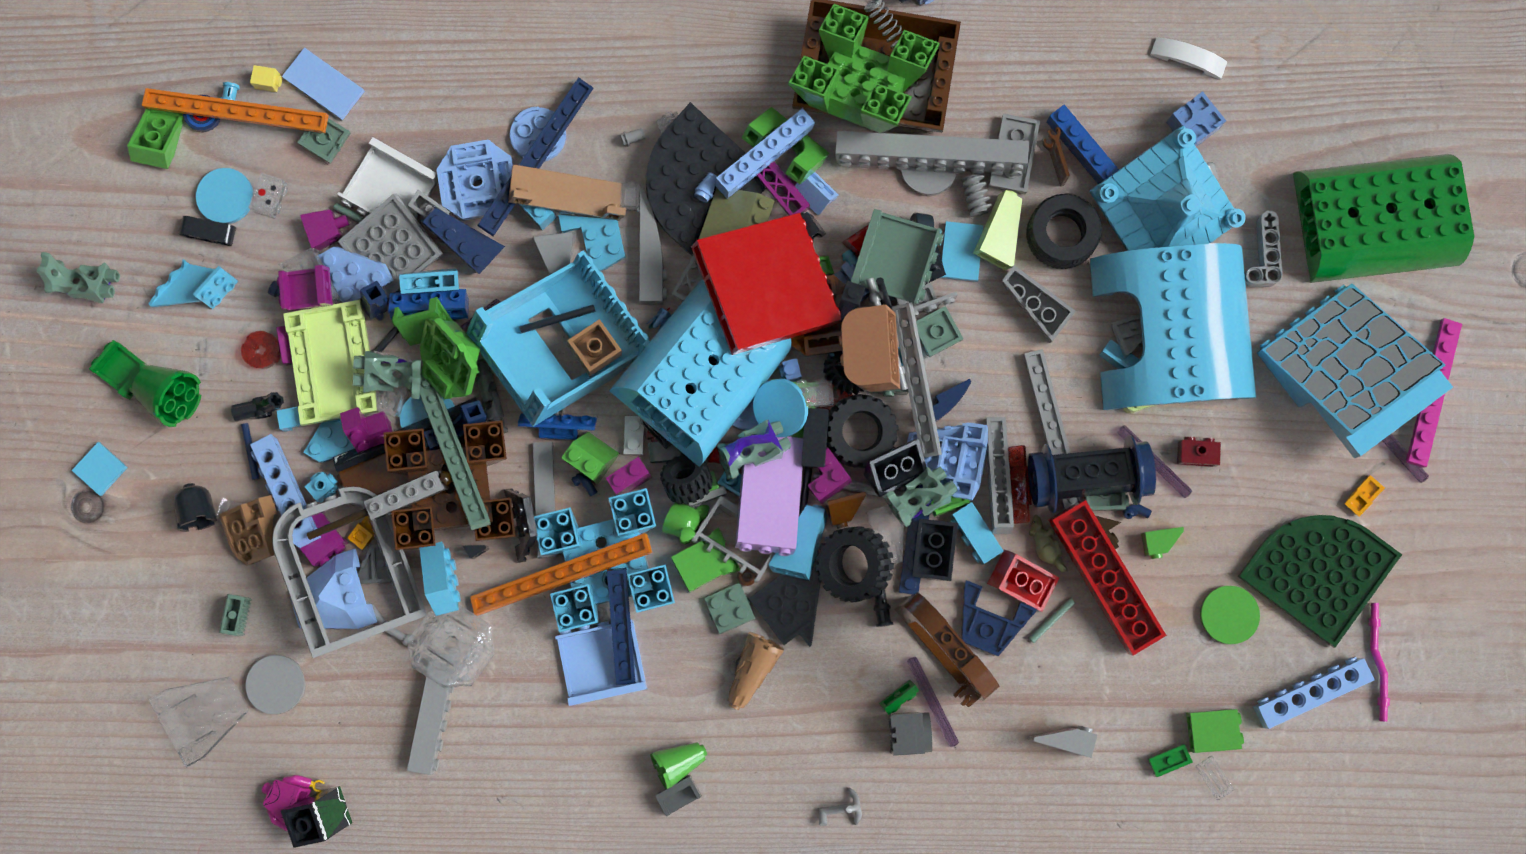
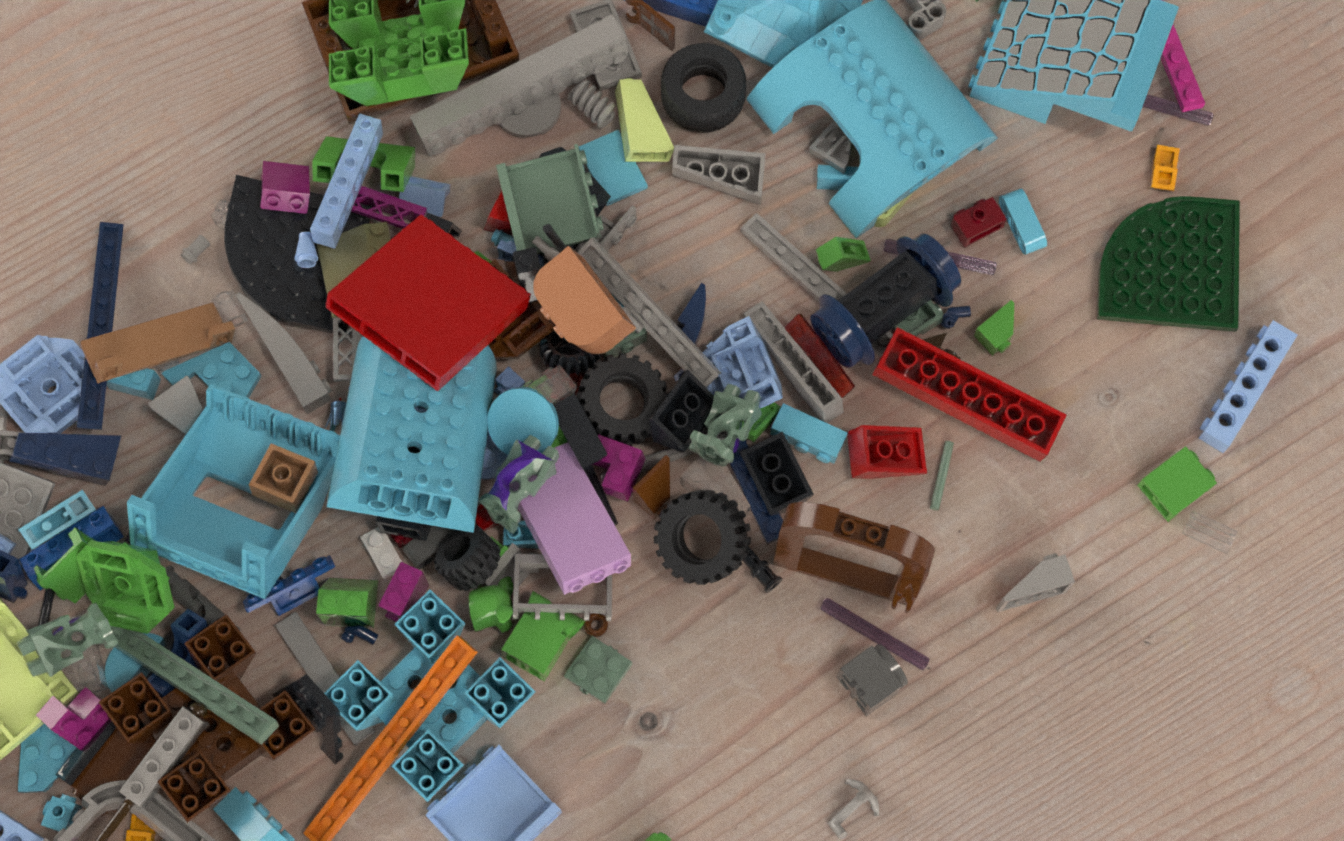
camera: 35 degrees left, 10 degrees down
(475, 550) = (279, 778): black slope -> none
(527, 128) = (74, 303): light blue tile -> none
(556, 319) = (224, 474): black bar -> none
(621, 626) = (491, 757): dark blue plate -> none
(719, 130) = (285, 187): none -> magenta panel
(756, 662) = (662, 705): medium nougat cone -> none
(790, 606) = (660, 621): black wing -> none
(809, 535) = (644, 569): medium azure slope -> none
(898, 697) = (835, 654): green plate -> none
(938, 331) = (640, 257): sand green plate -> none
(986, 629) = (896, 512): dark blue wing -> none
(1046, 548) = (889, 405): olive animal -> none
(1085, 417) = (842, 254): none -> bright green slope
(1170, 760) = (1154, 541): green plate -> none
(1230, 614) = (1114, 361): bright green tile -> none
(1232, 472) = (1023, 221): none -> medium azure beam
(1383, 701) = (1319, 352): dark pink bar -> none

